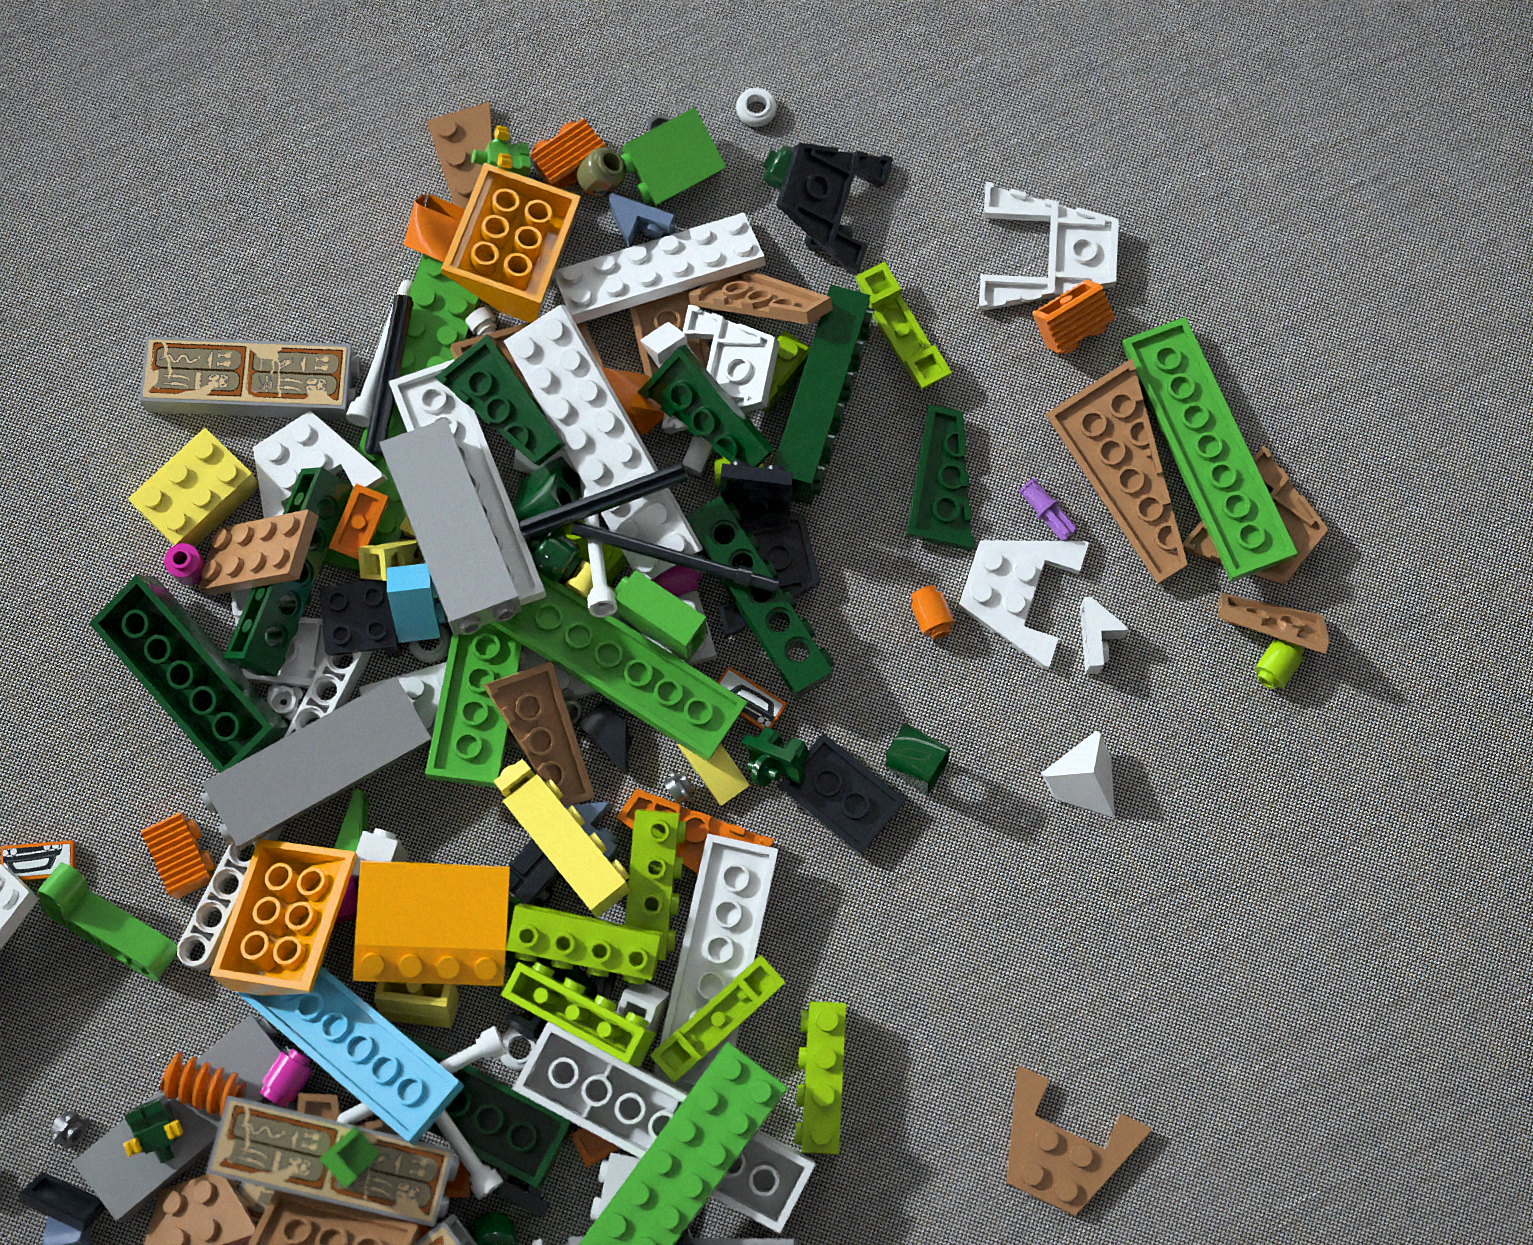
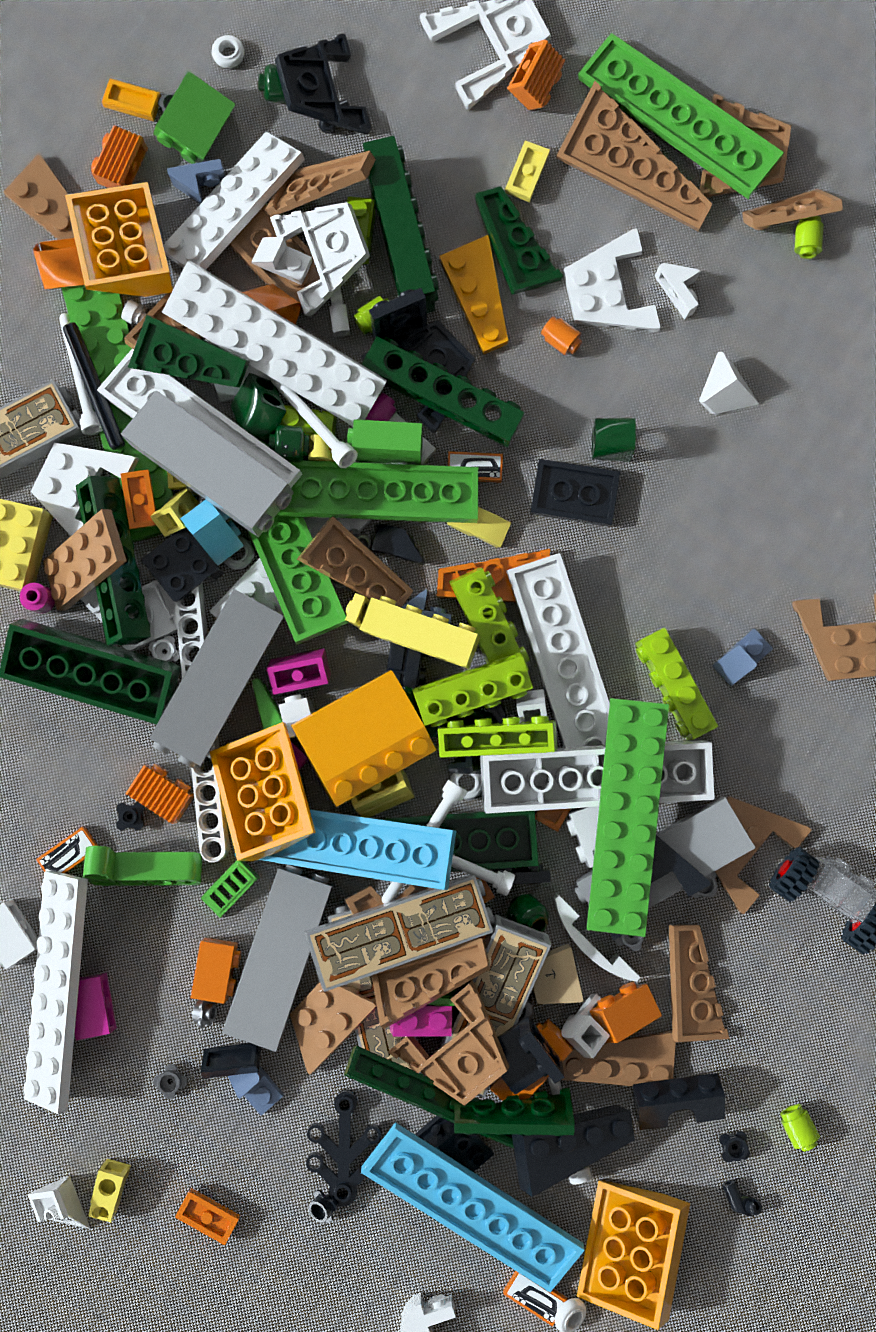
camera: 30 degrees left, 10 degrees up
(111, 1089) = (215, 970): none -> orange brick
(137, 867) = (137, 816): none -> black plate
(153, 1129) = (263, 980): dark green piece -> none
(199, 1085) = (277, 934): orange piece -> none
(215, 999) = (246, 871): none -> bright green slope
(286, 1077) = (330, 894): dark pink brick -> none
(349, 1156) = (411, 923): bright green panel -> none
(412, 810) = (298, 671): none -> dark pink brick
(503, 154) = (74, 182): bright green piece -> none
(601, 172) = (150, 157): olive head -> none
(603, 501) = (301, 384): black axle -> none
(622, 100) = (131, 99): none -> light orange tile
(679, 787) = (466, 551): flat silver plate -> none
(697, 399) = (322, 278): dark green wing -> none
(717, 1019) = (588, 686): lime slope -> none
(741, 576) = (426, 383): black bar -> none
(771, 761) = (518, 498): dark green hips -> none
(870, 506) = (476, 288): none -> light orange wing
(900, 327) = (425, 154): lime slope -> none
(920, 1094) = (742, 657): none -> sand blue slope
(1003, 412) = (527, 171): none -> light yellow plate
(1048, 509) = (597, 221): medium lavender axle -> none

